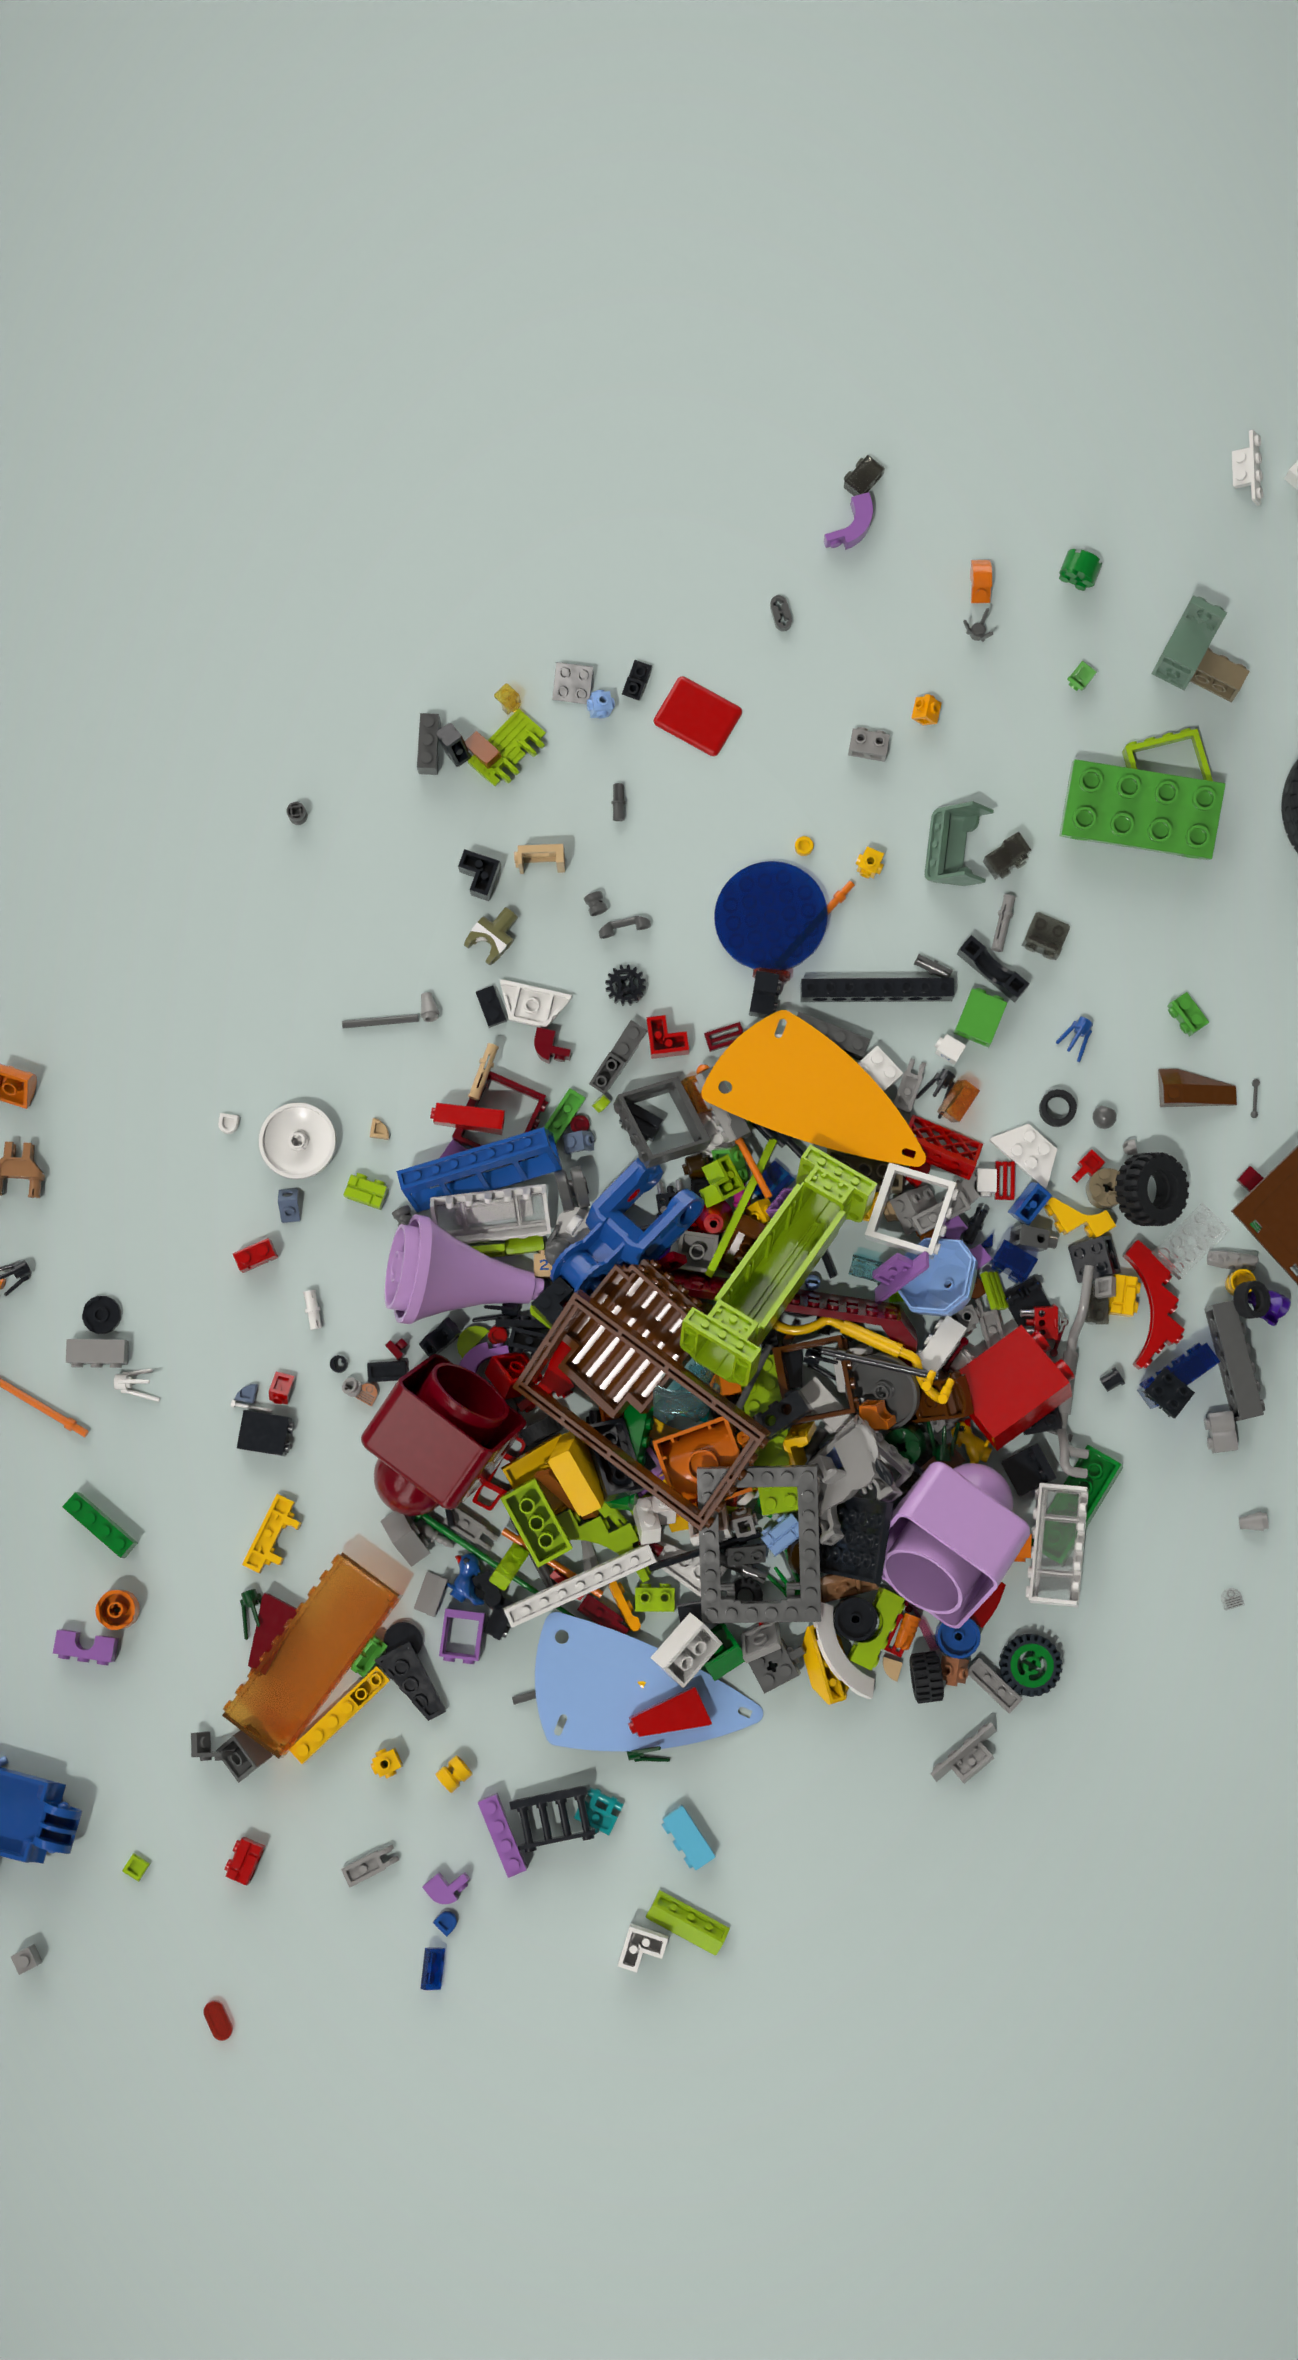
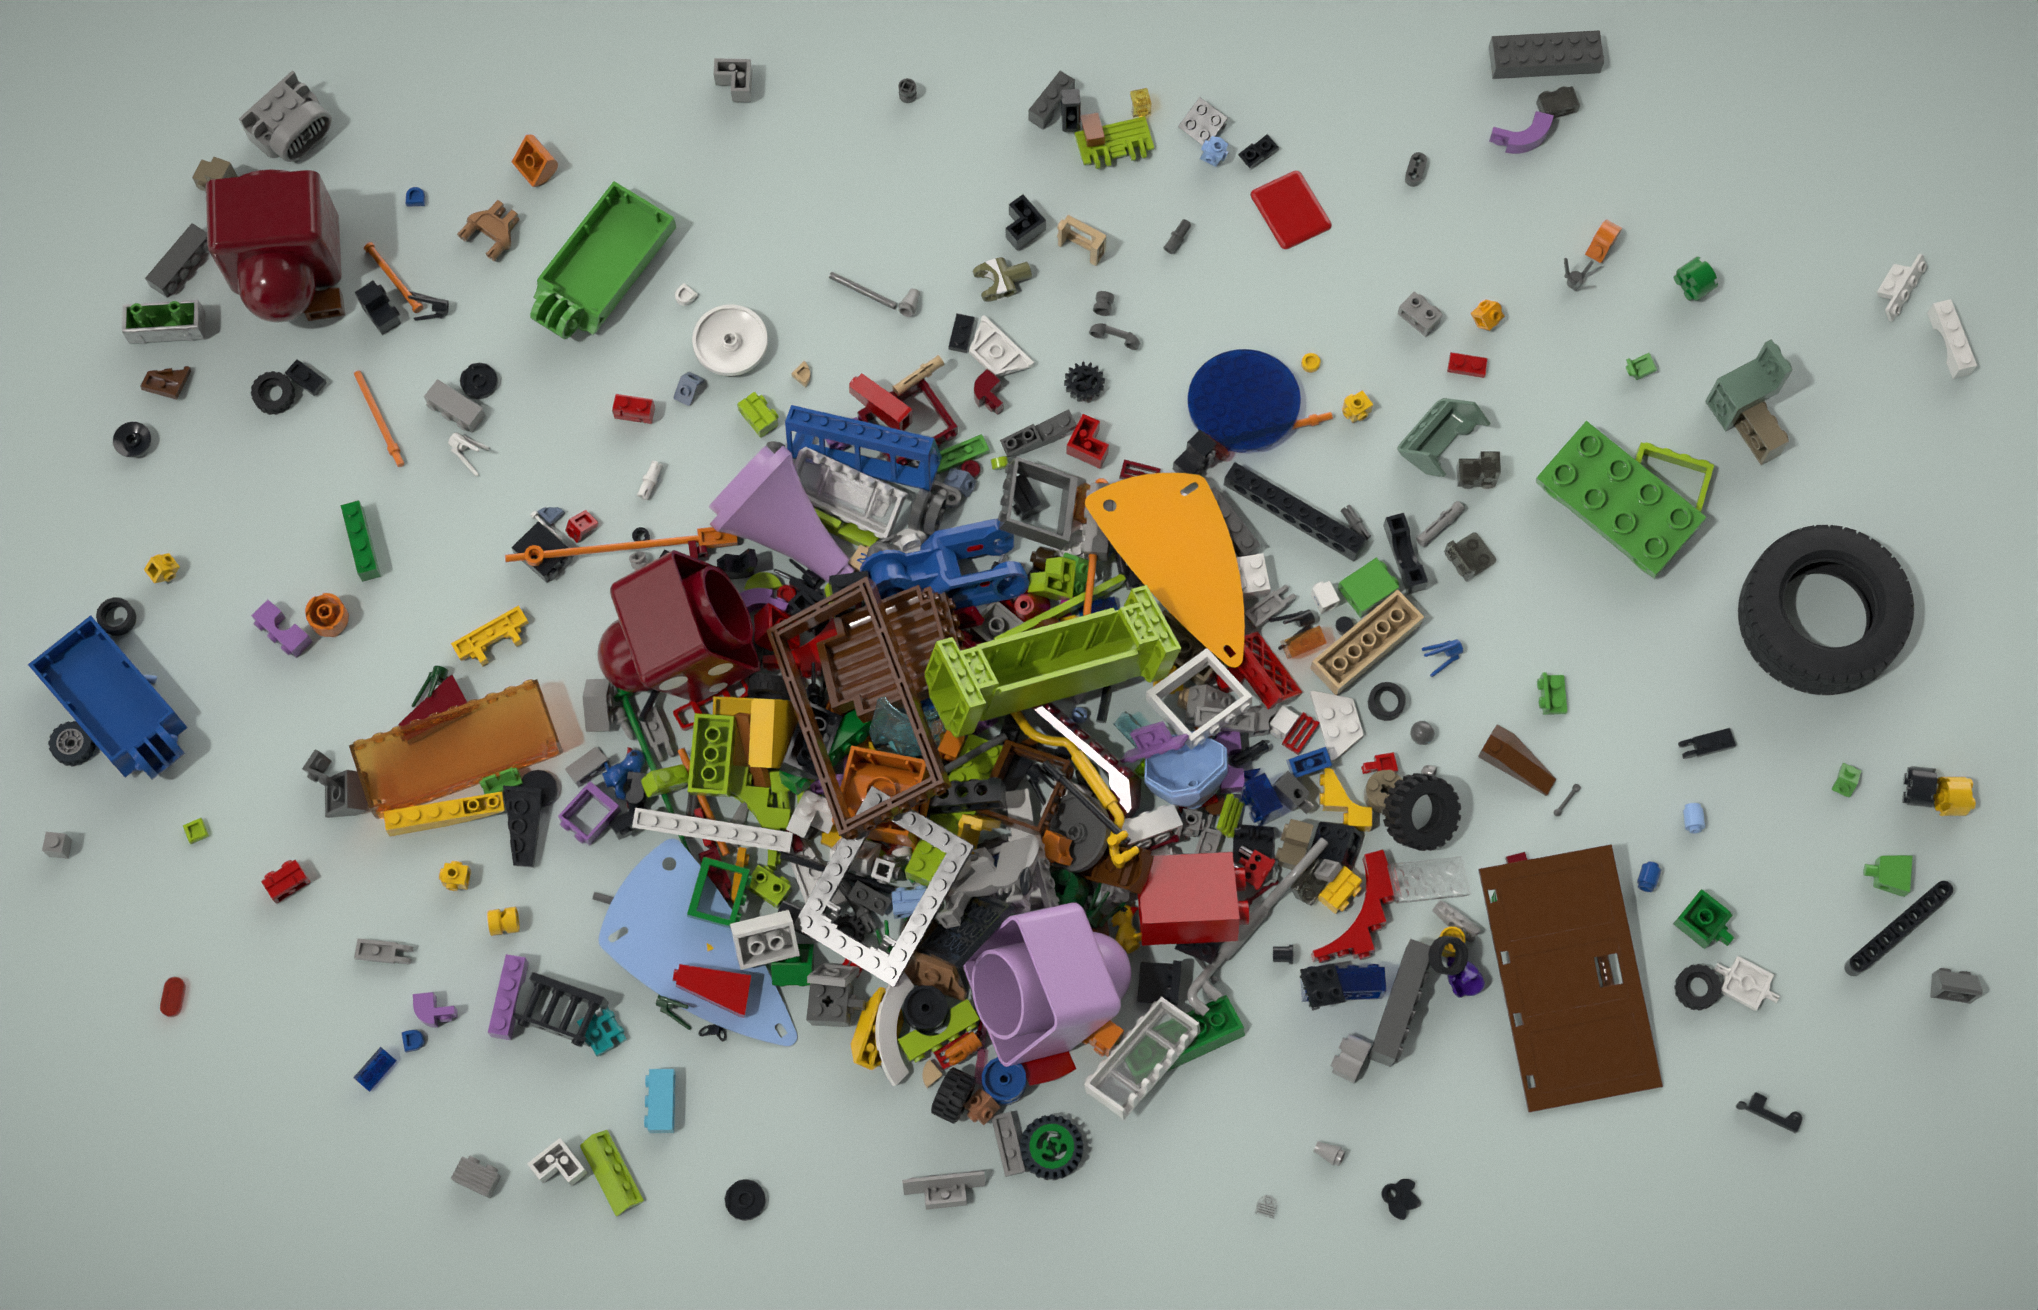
camera: 30 degrees right, 10 degrees down
(136, 1143) = (600, 262): none -> bright green plate
(137, 891) = (736, 74): none -> light grey brick
(394, 1331) = (704, 536): none -> orange bar
(571, 1160) = (948, 491): none -> light grey plate
(579, 2000) = (475, 1176): none -> light grey brick
(581, 1408) = (813, 691): none -> black plant
(602, 1641) = (699, 886): none -> green window
(691, 1749) = (713, 1030): none -> black piece
(811, 1872) = (745, 1200): none -> black tile
(826, 438) = (1546, 54): none -> dark grey brick
(936, 765) = (1467, 365): none -> red plate
(981, 1064) = (1343, 625): none -> black piece
(1011, 1068) = (1367, 642): none -> tan brick
(1063, 1282) = (1296, 840): none -> dark tan brick

